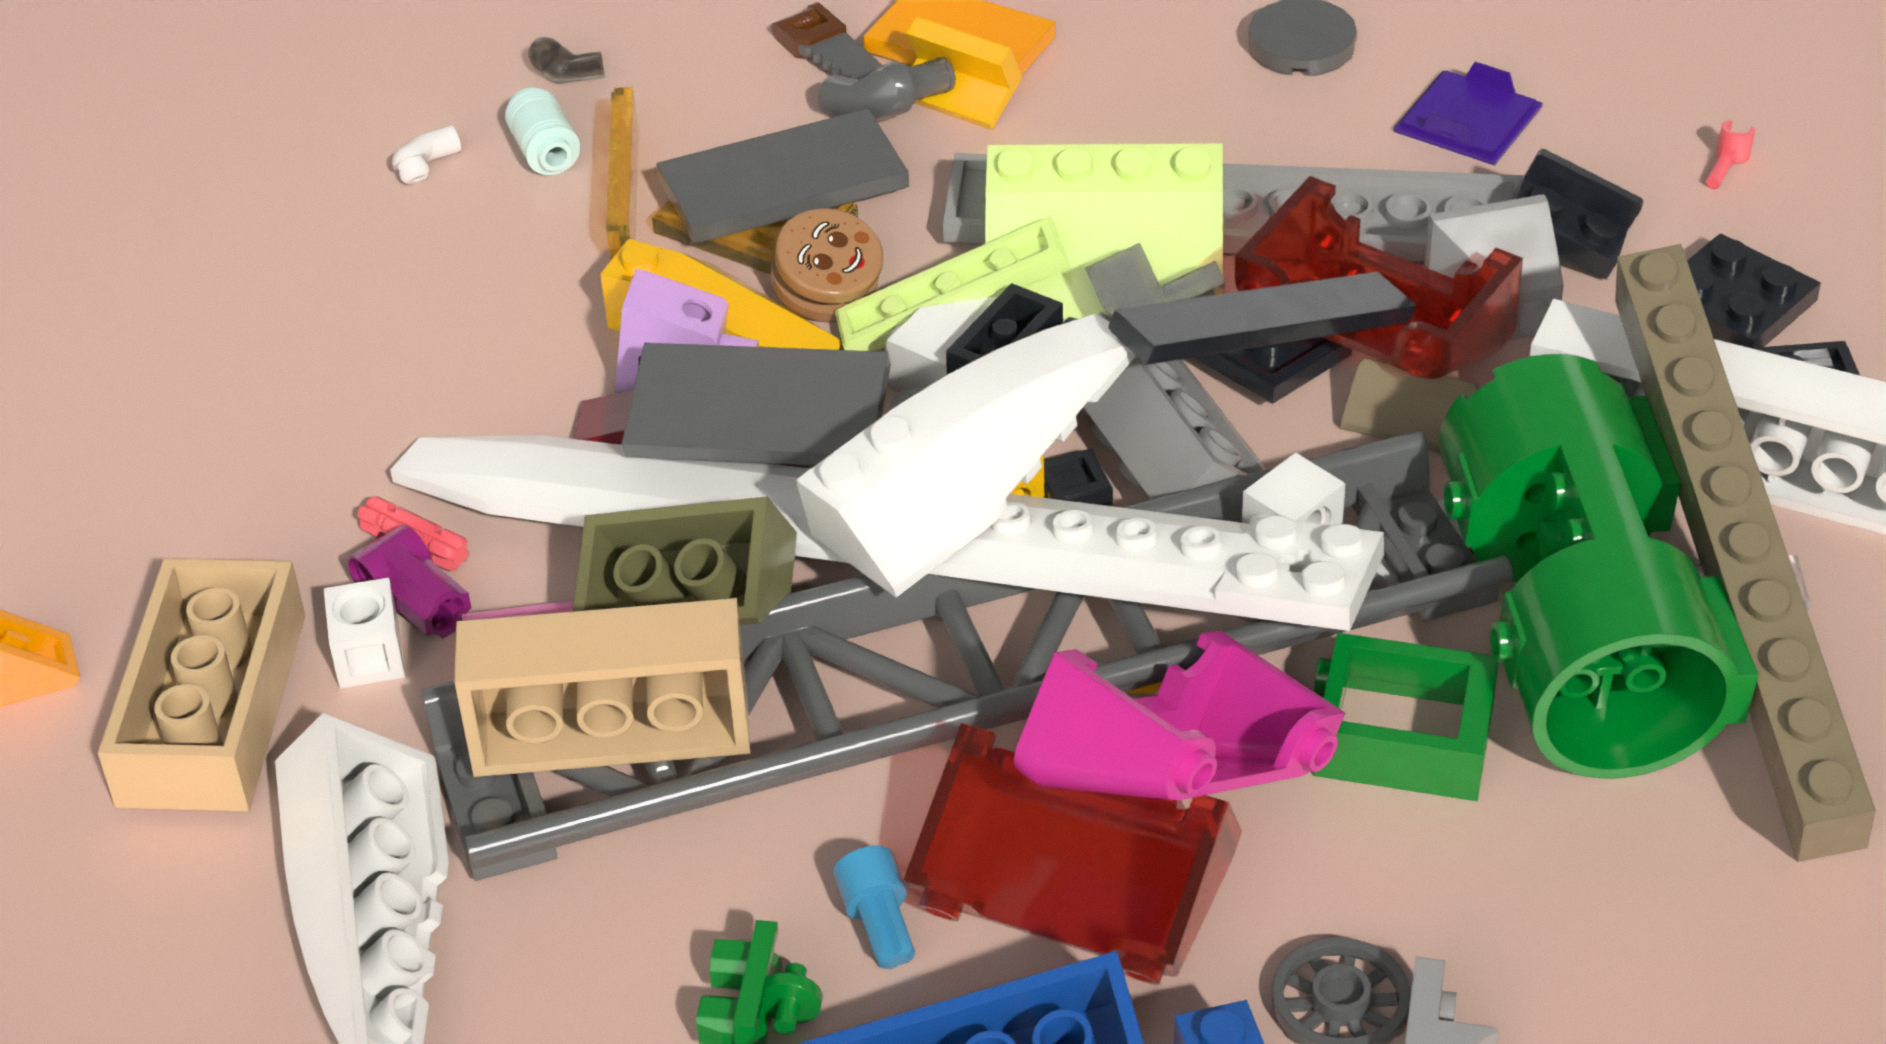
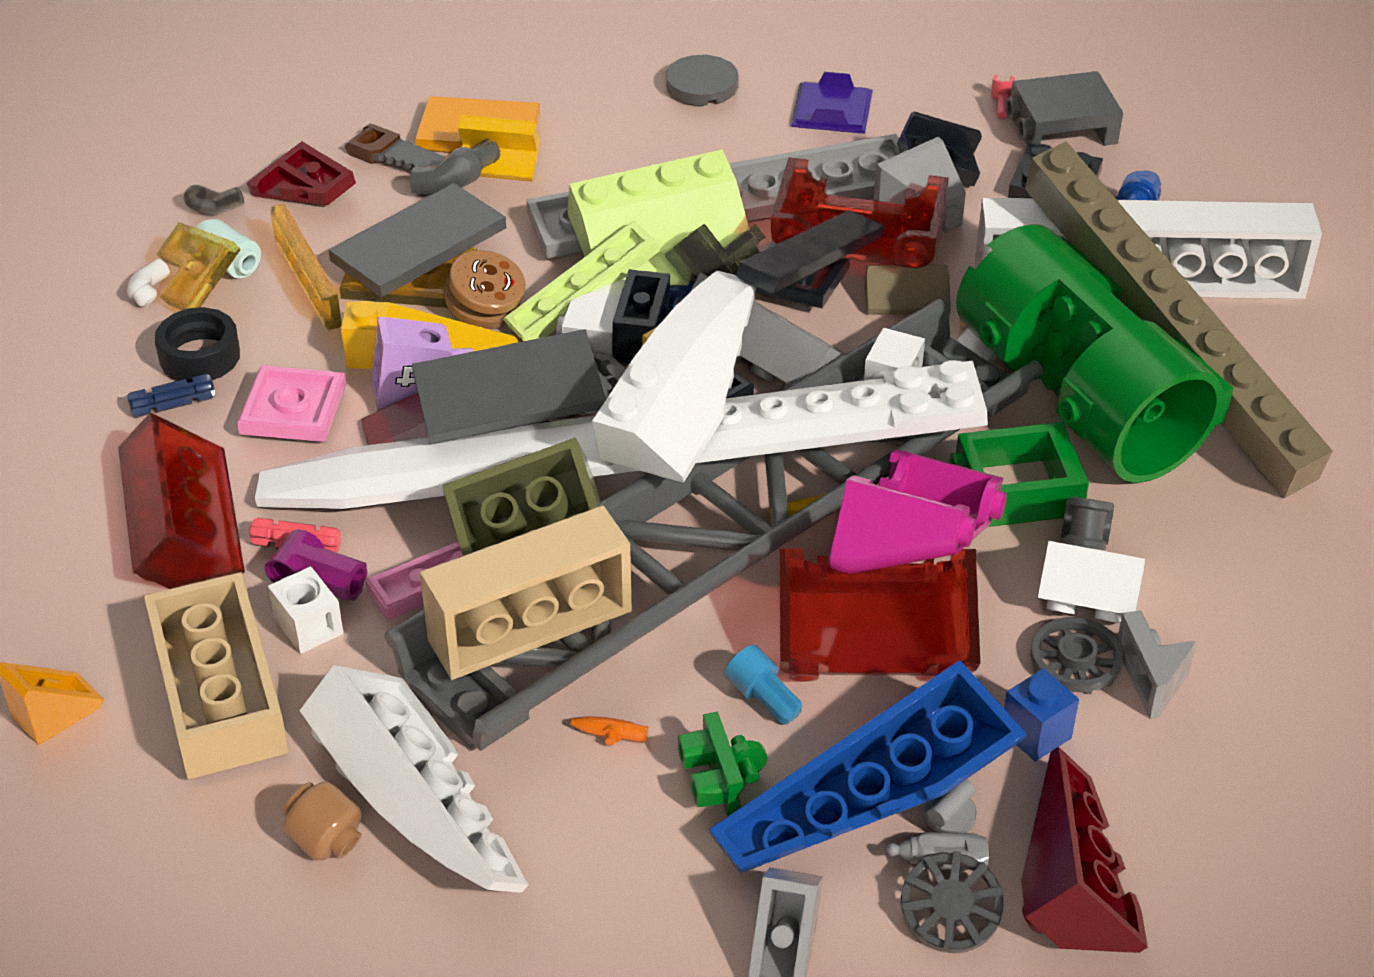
camera: 25 degrees left, 0 degrees up
(227, 909) = (322, 821): none -> medium nougat head
(294, 456) = (178, 505): none -> clear red slope
(371, 309) = (171, 395): none -> dark blue axle
(435, 277) = (196, 325): none -> black tyre
(498, 139) = (201, 261): none -> clear yellow tile
(506, 357) = (292, 403): none -> bright pink plate
(655, 904) = (611, 729): none -> orange helmet
(690, 57) = (303, 177): none -> dark red wing
(1415, 894) = (1090, 580): none -> white slope
(1456, 815) = (1087, 522): none -> dark grey piece
(1802, 190) = (1064, 105): none -> dark grey panel
(1836, 342) = (1140, 186): none -> blue arm

